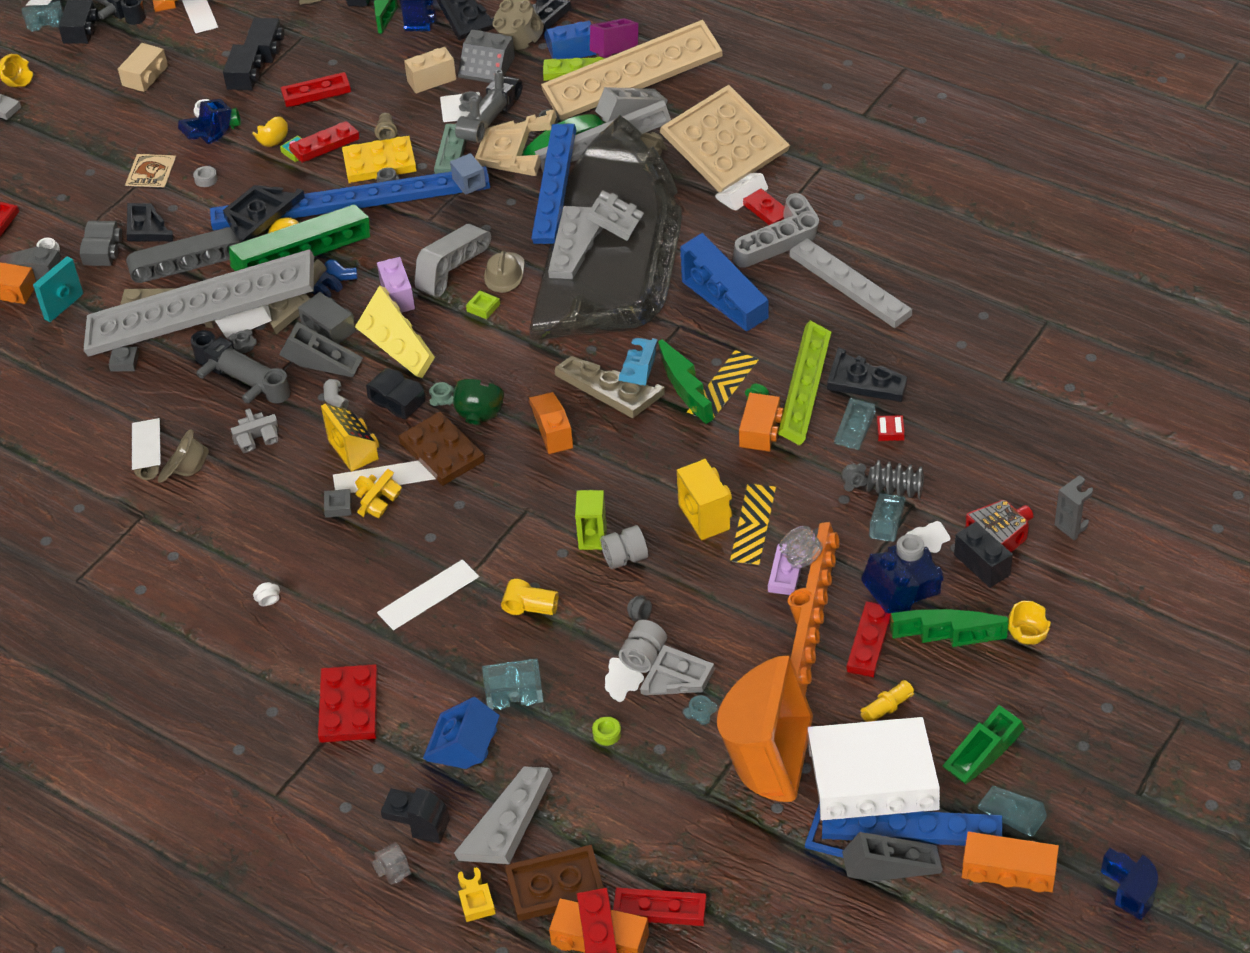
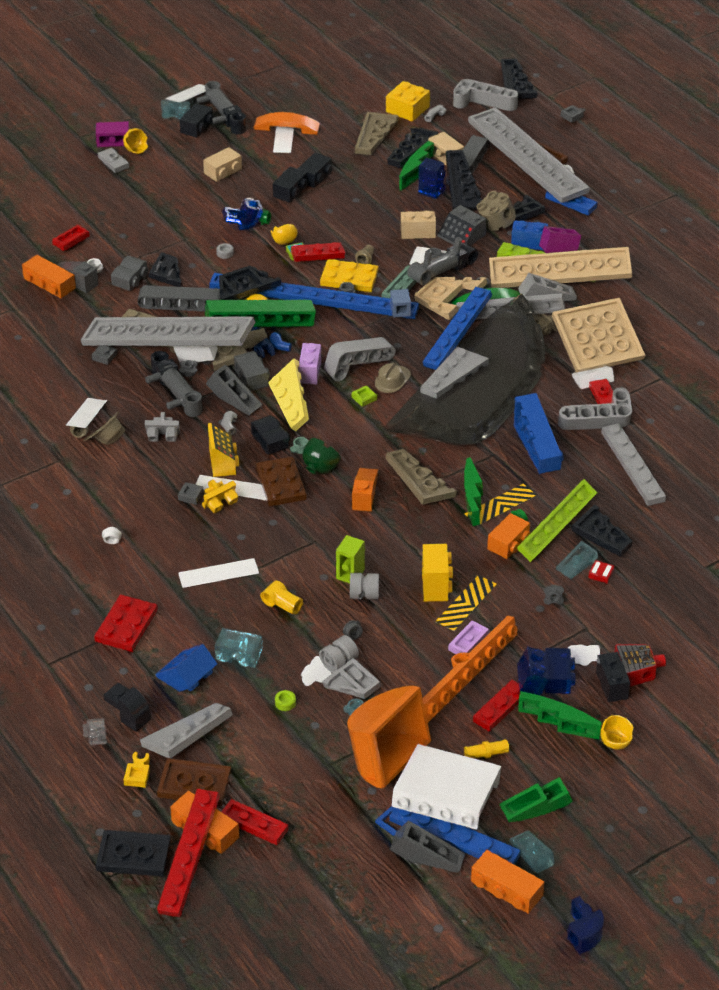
camera: 20 degrees right, 5 degrees down
(58, 289) = (83, 294): teal plate -> none
(150, 170) = (191, 236): tan sticker -> none
(315, 89) = (331, 214): red plate -> none
(615, 215) = (485, 366): light grey plate -> none
(639, 363) = (448, 469): dark azure hinge -> none
(800, 547) = (482, 625): clear wheel -> none
(886, 517) = (561, 630): clear light blue slope -> none
(896, 479) = (581, 606): dark grey piece -> none
(910, 547) = (559, 652): light grey tile -> none
(1070, 508) = (694, 666): dark grey hinge -> none

